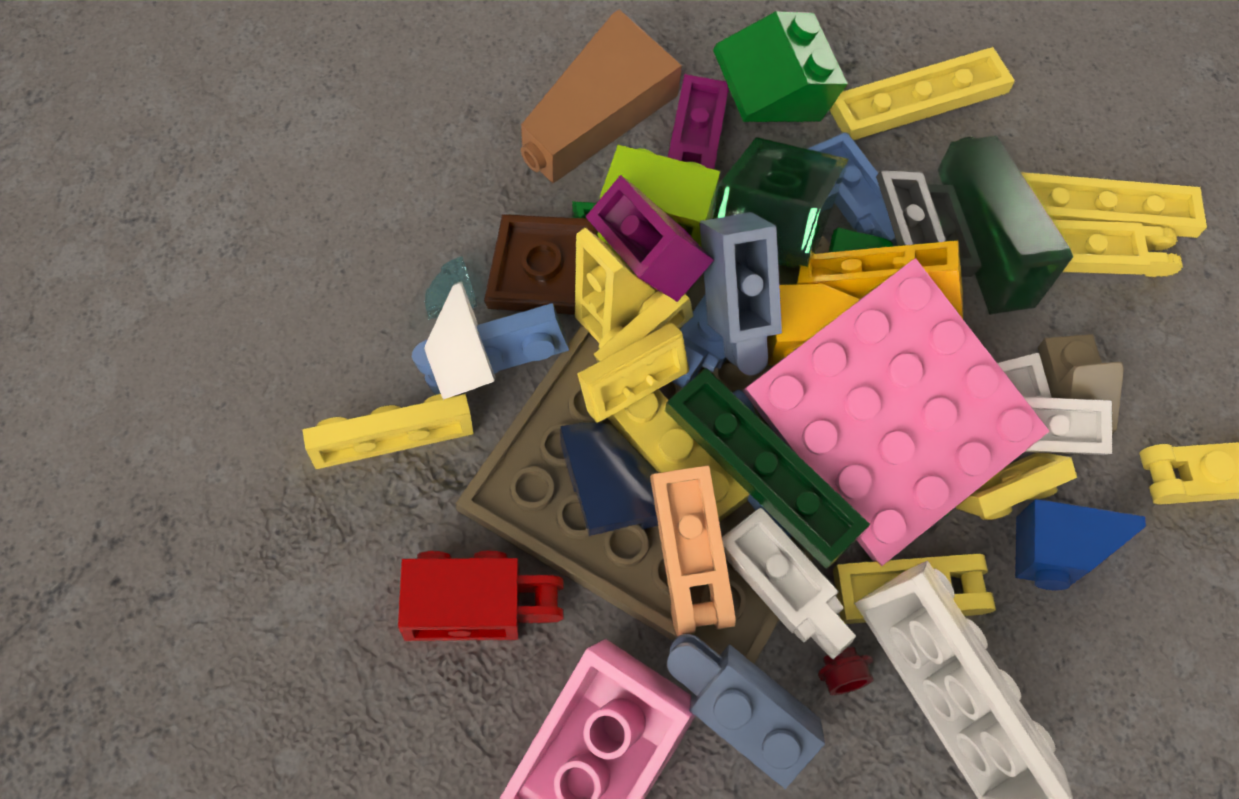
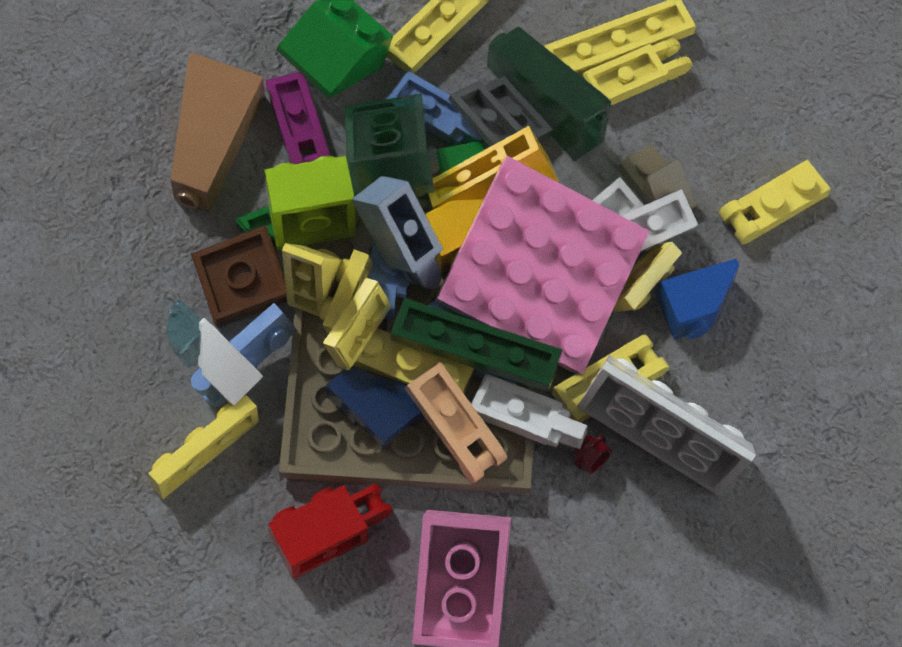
camera: 25 degrees left, 0 degrees up
(648, 239) = (323, 228): magenta slope -> none
(747, 708) = (540, 503): sand blue brick -> none

